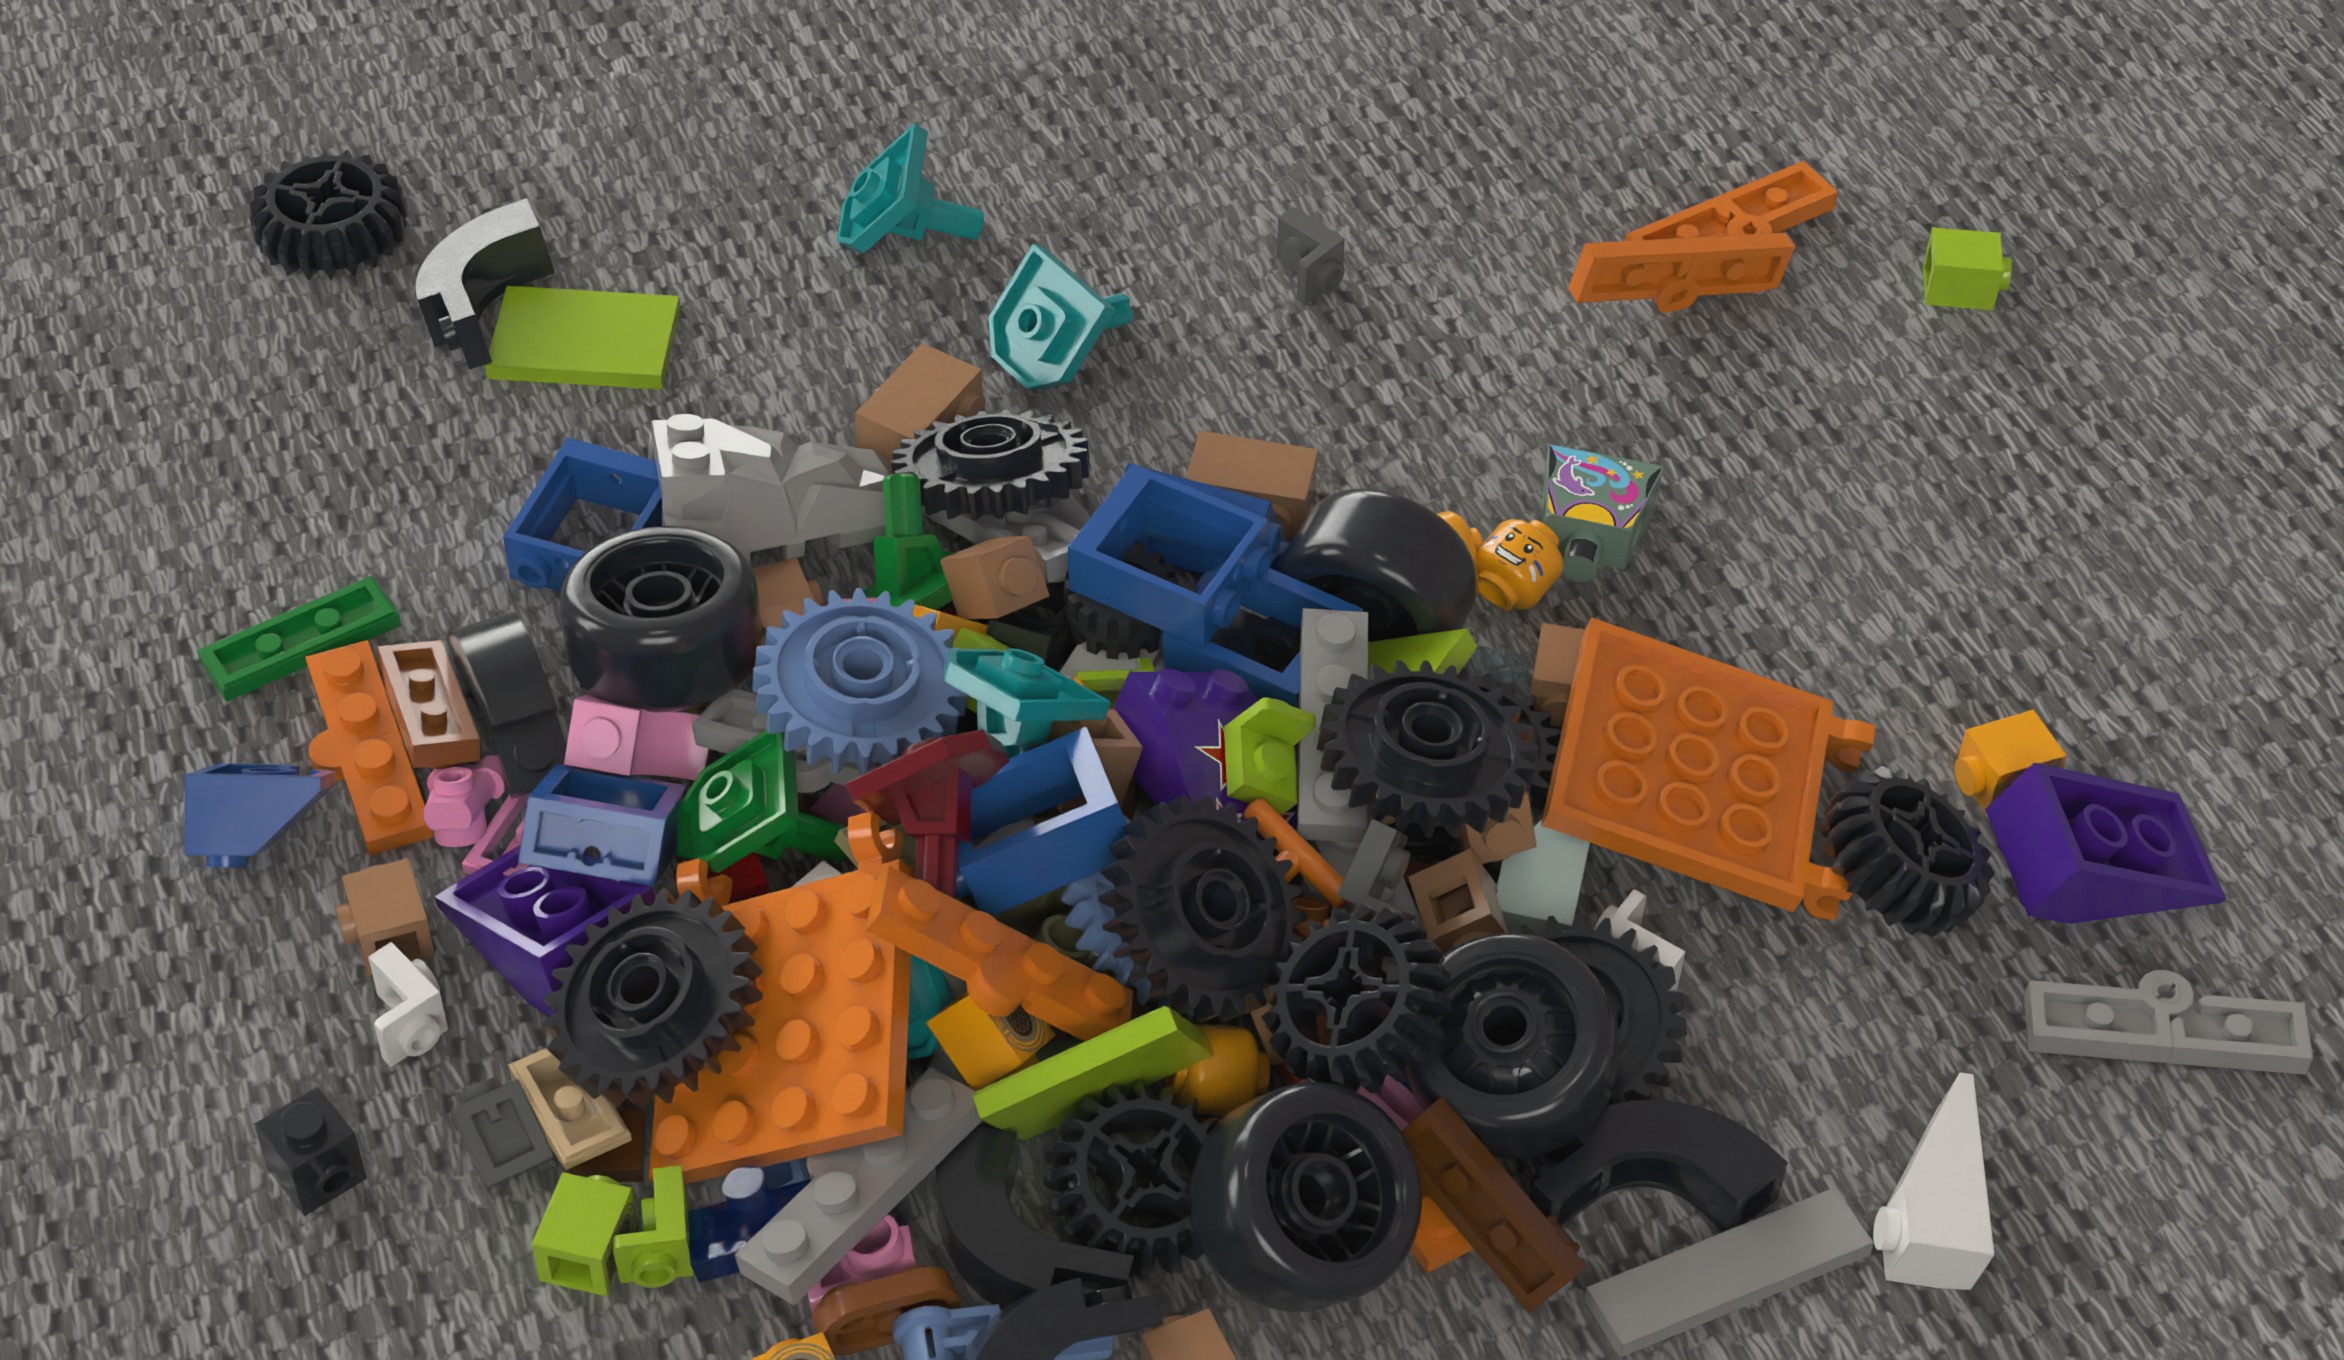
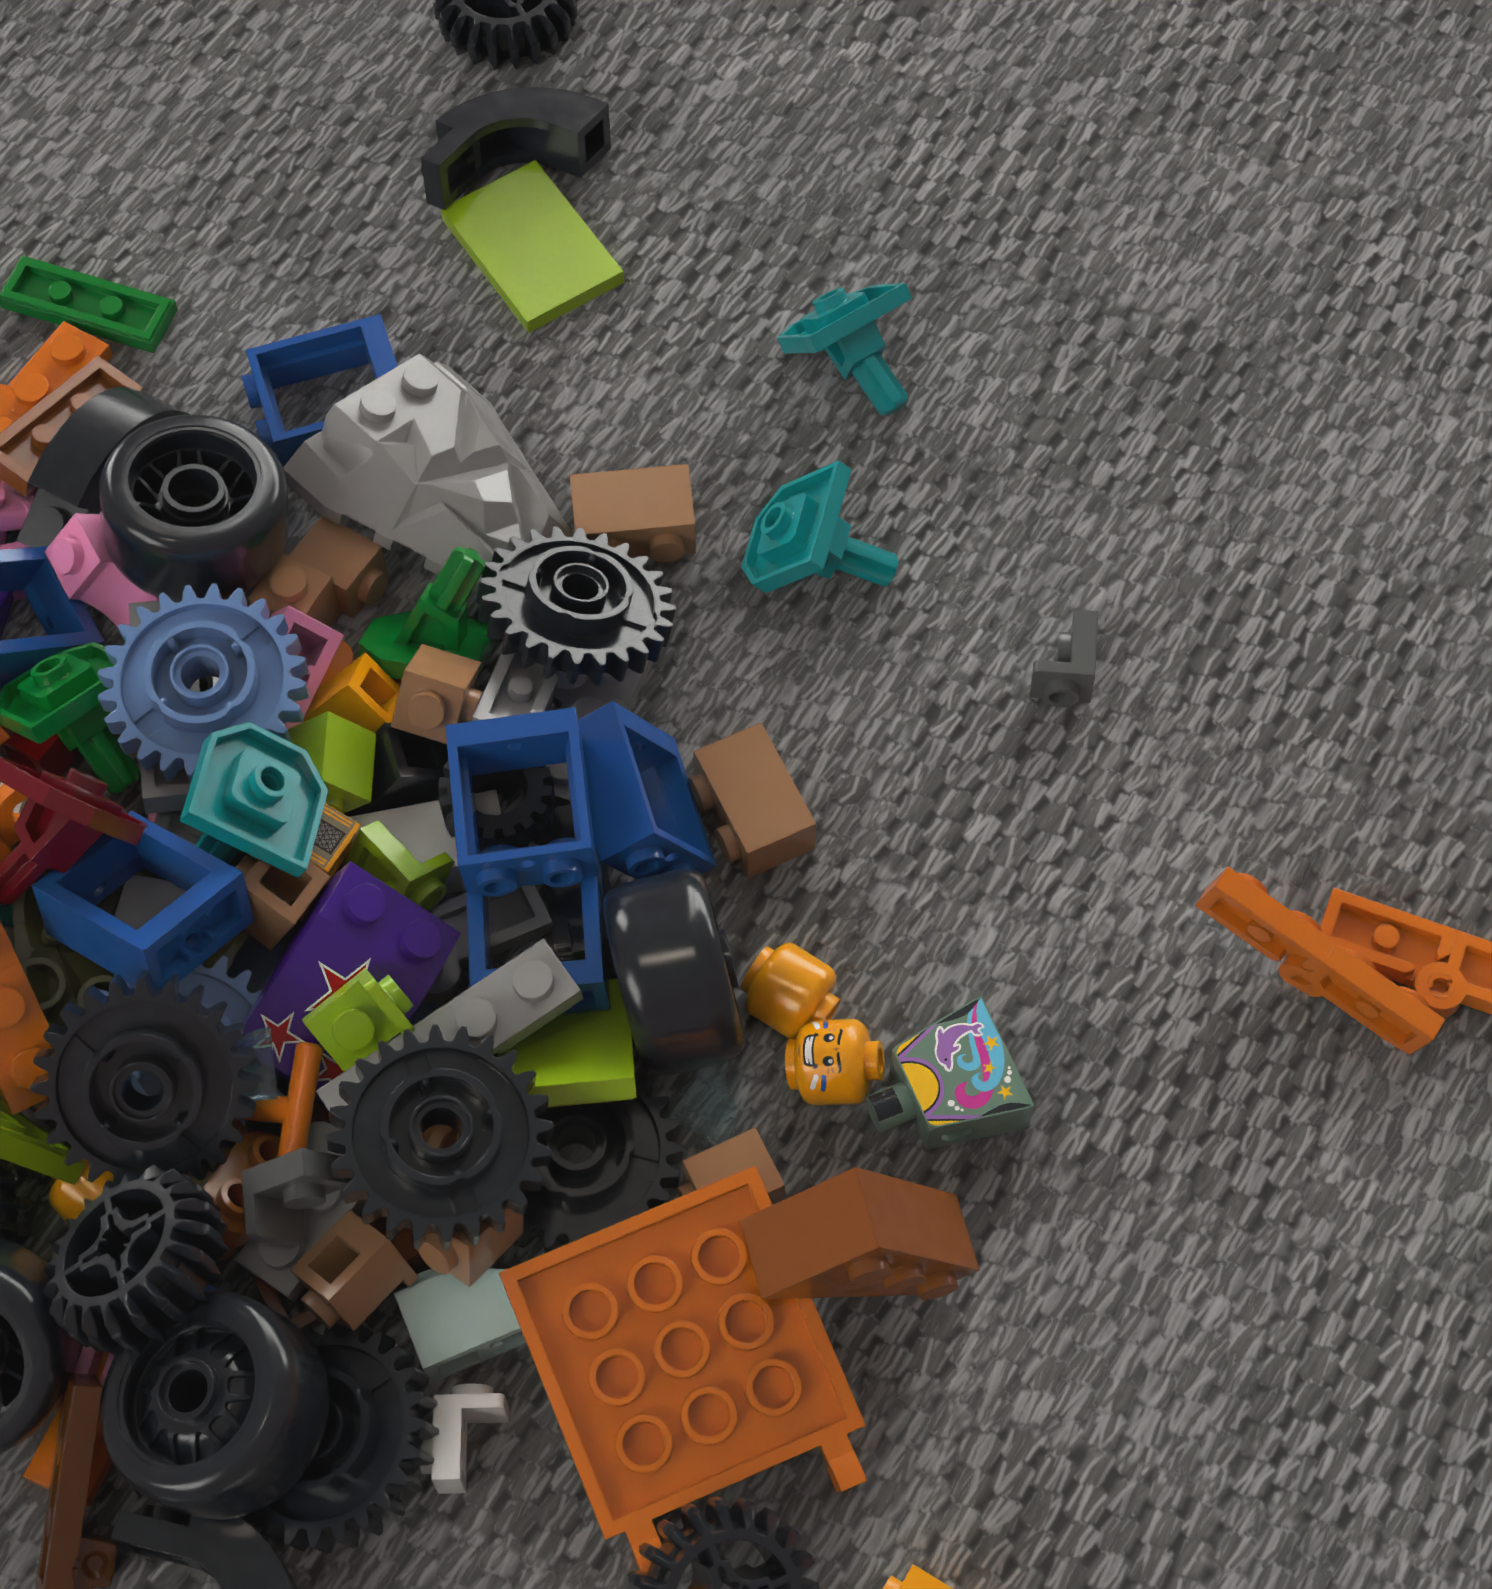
camera: 55 degrees right, 15 degrees up
(1702, 593) = (860, 1240): none -> dark orange wedge

